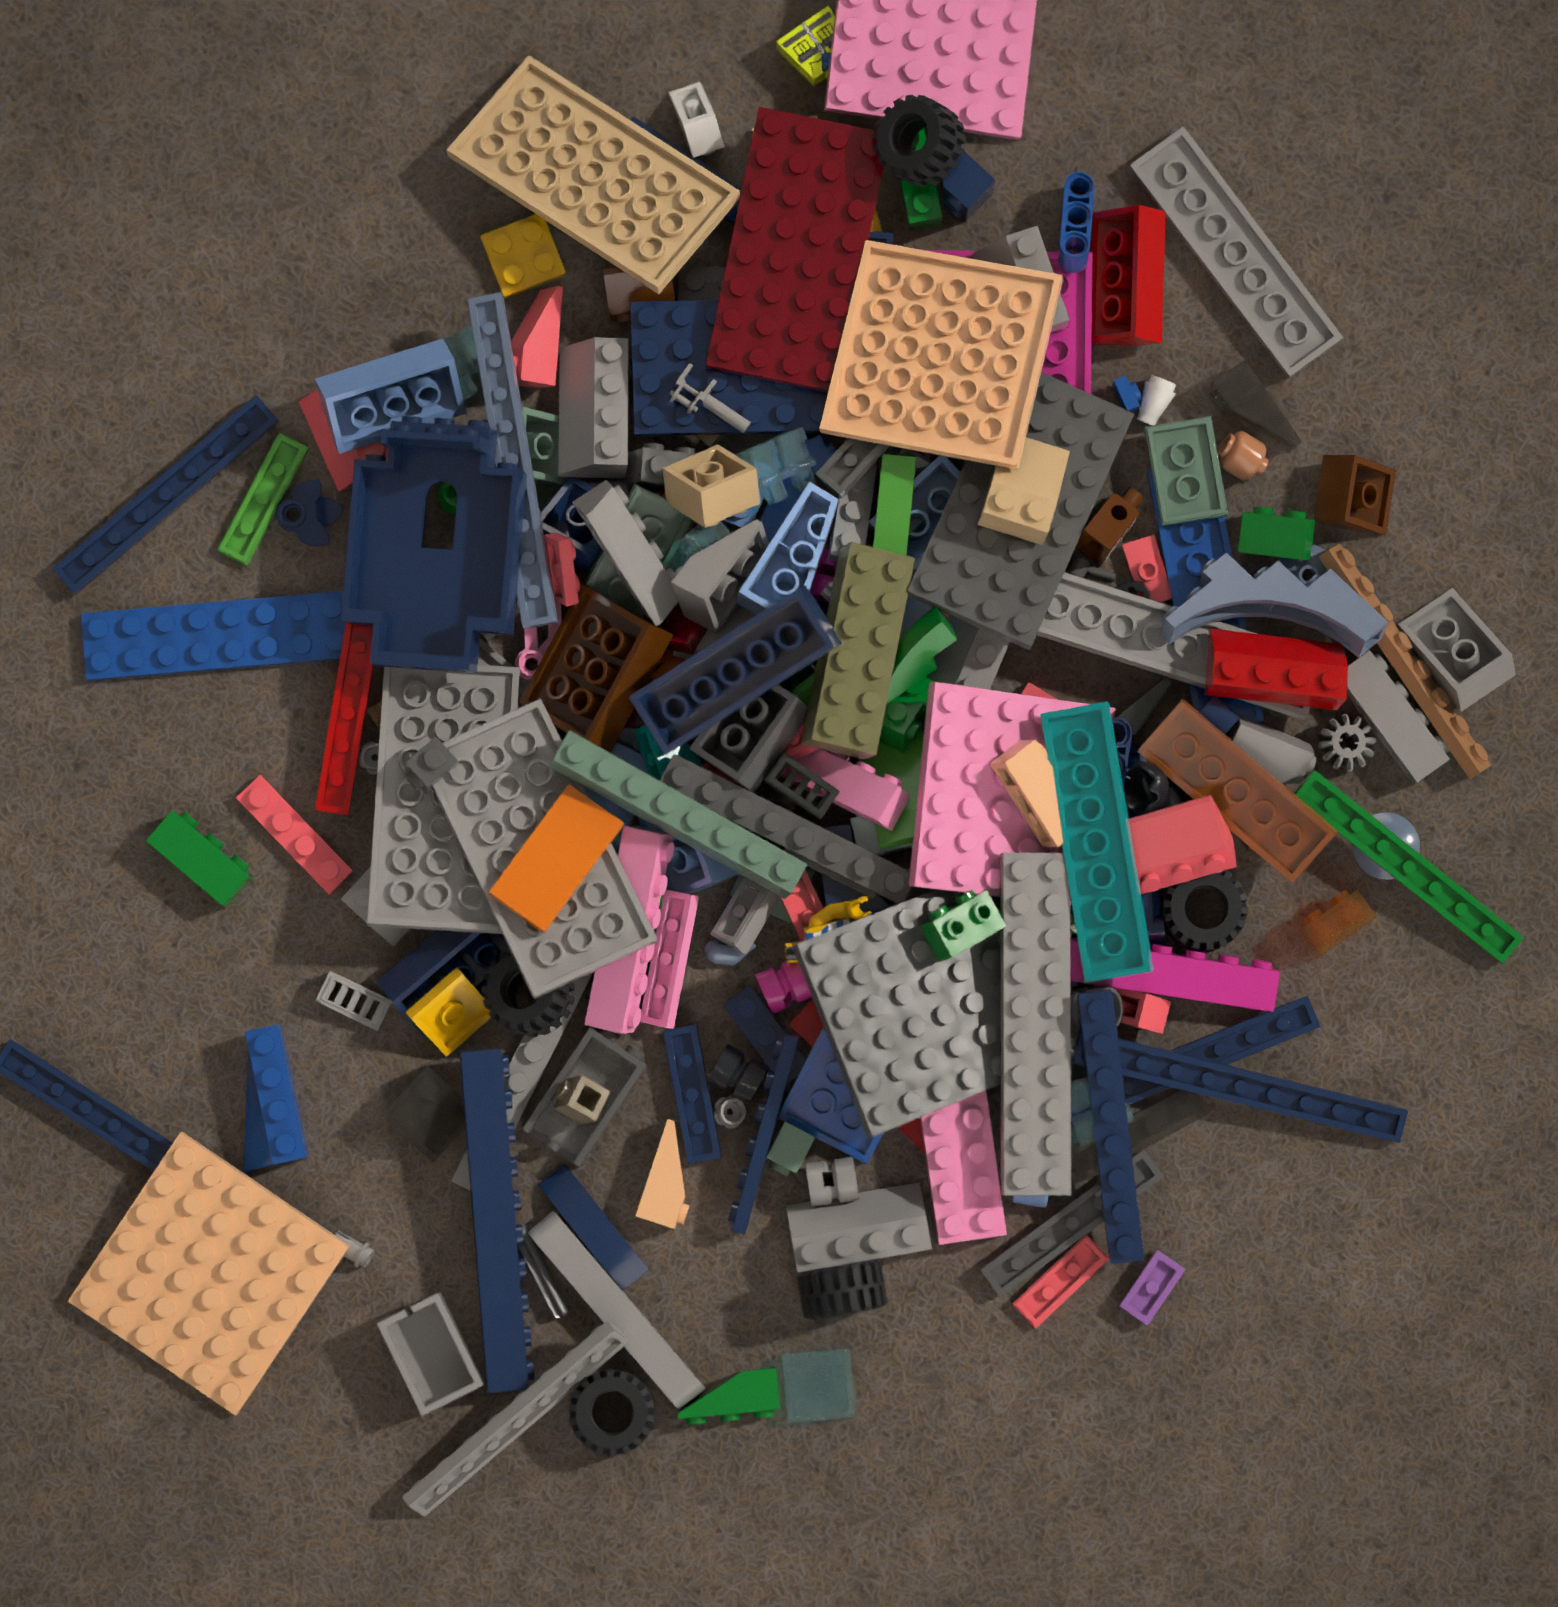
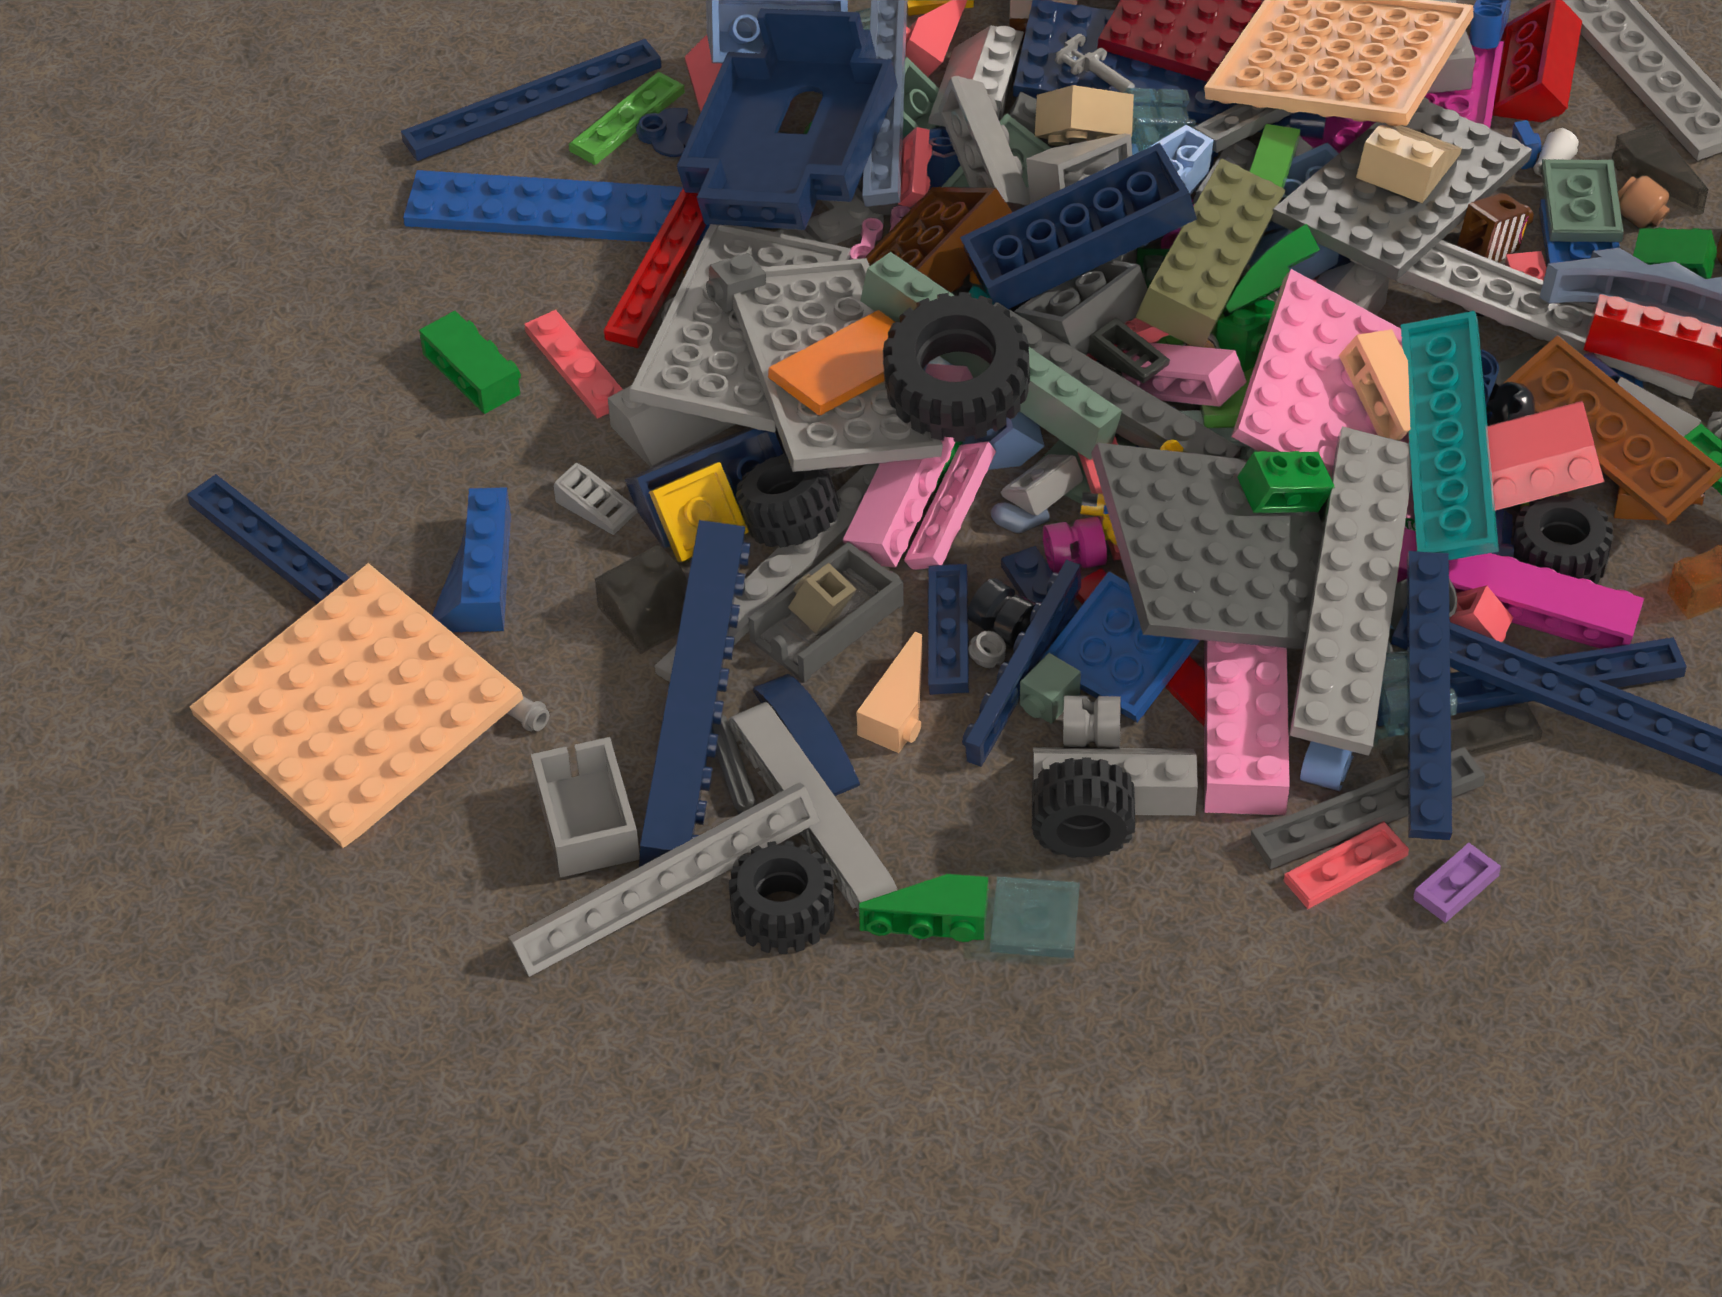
camera: 10 degrees right, 35 degrees down
(658, 924) = (948, 327): none -> black tyre

